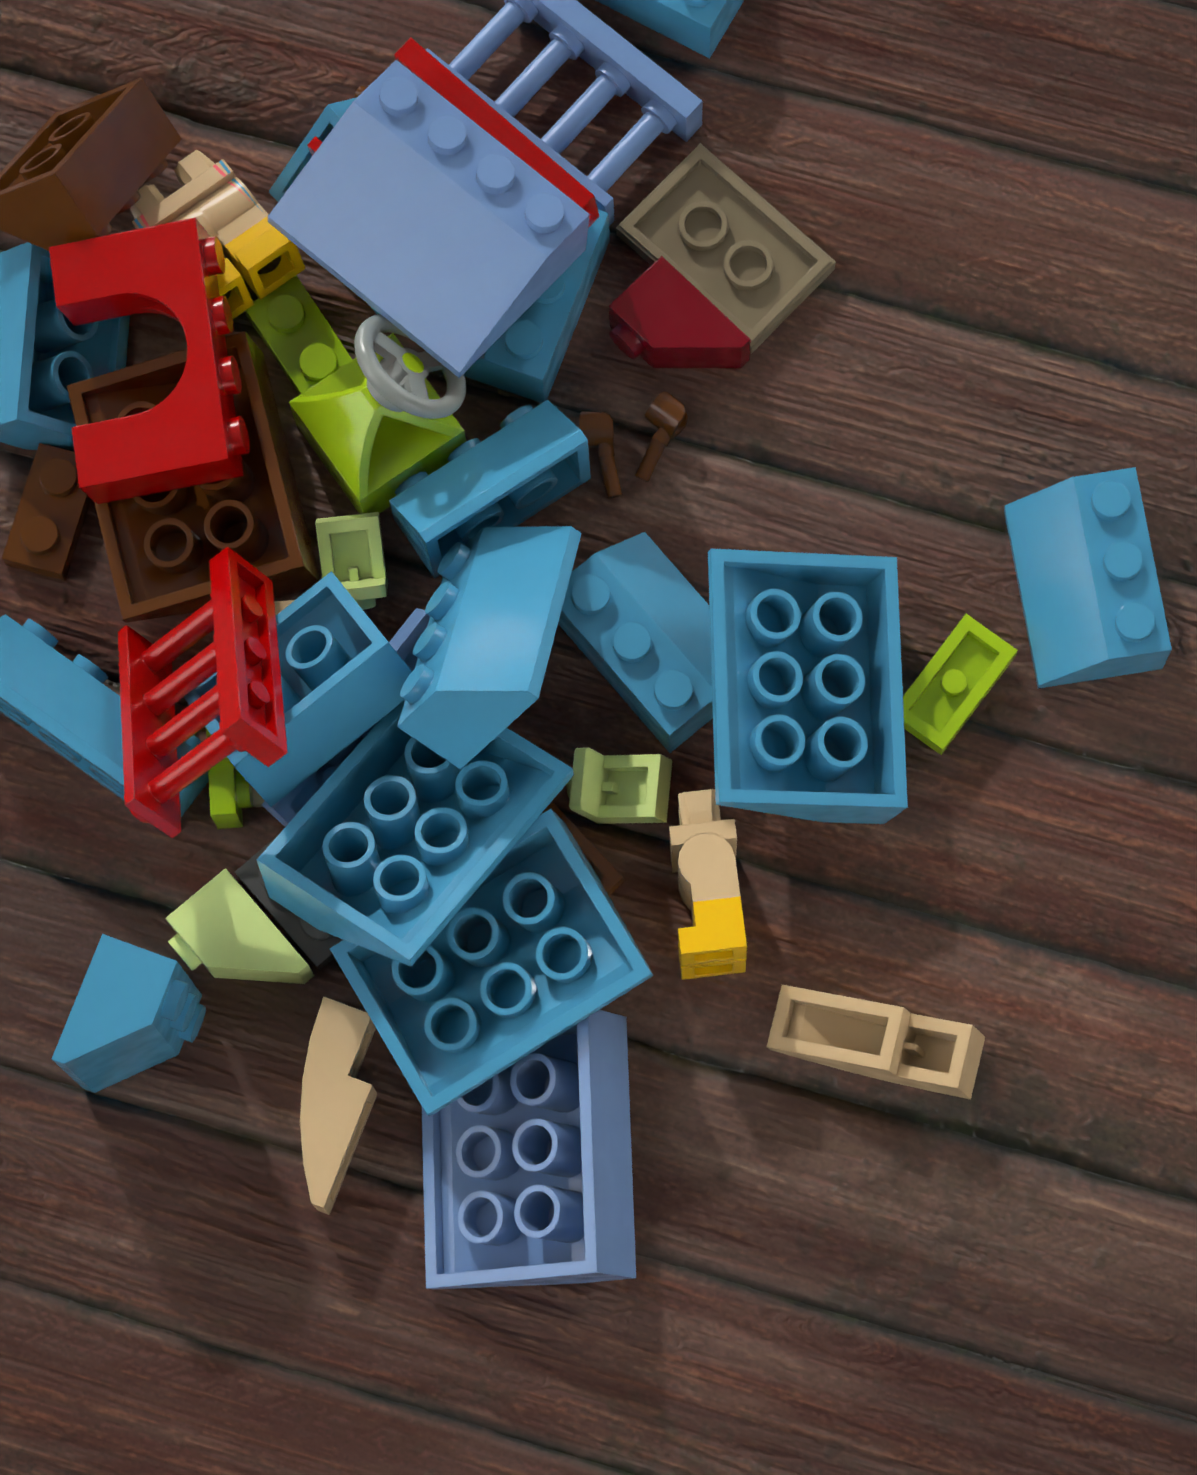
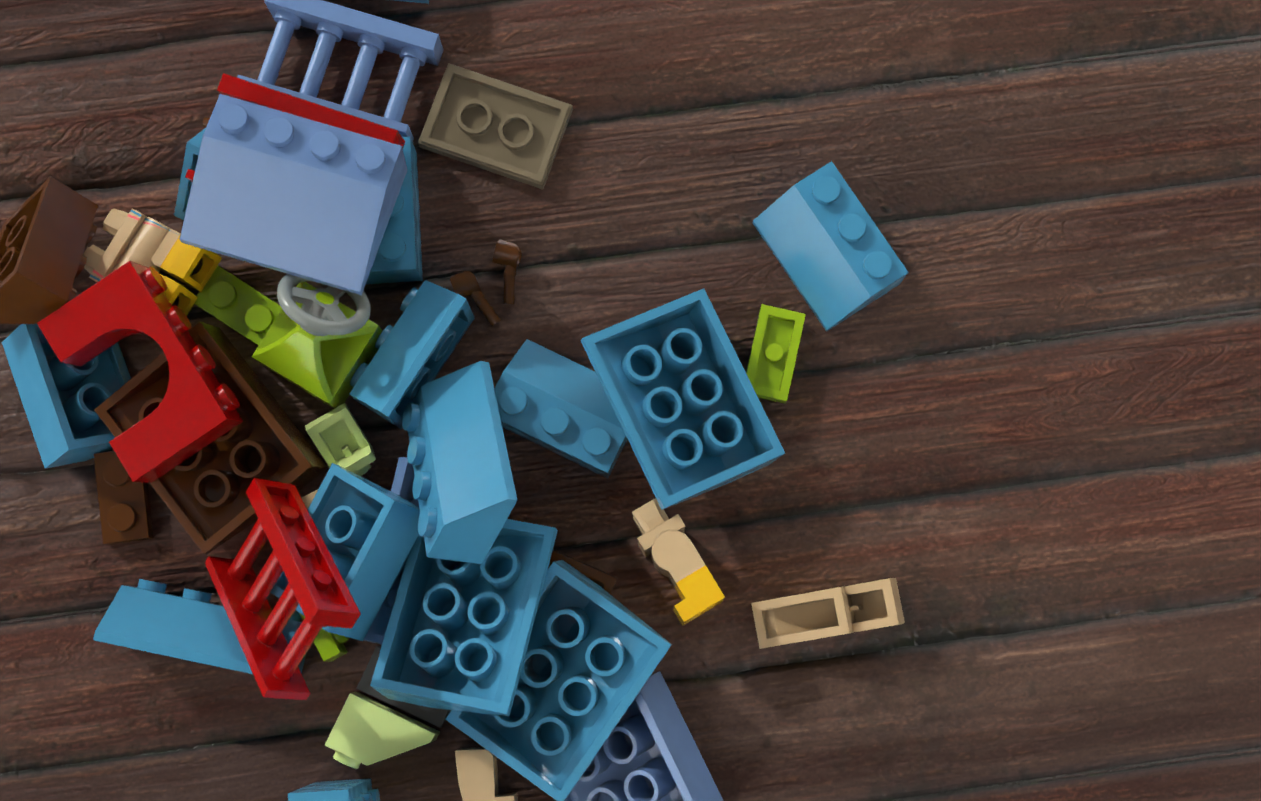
camera: 30 degrees left, 5 degrees up
(620, 787) = (587, 518): yellowish green bracket -> none
(674, 324) = (485, 191): dark red slope -> none

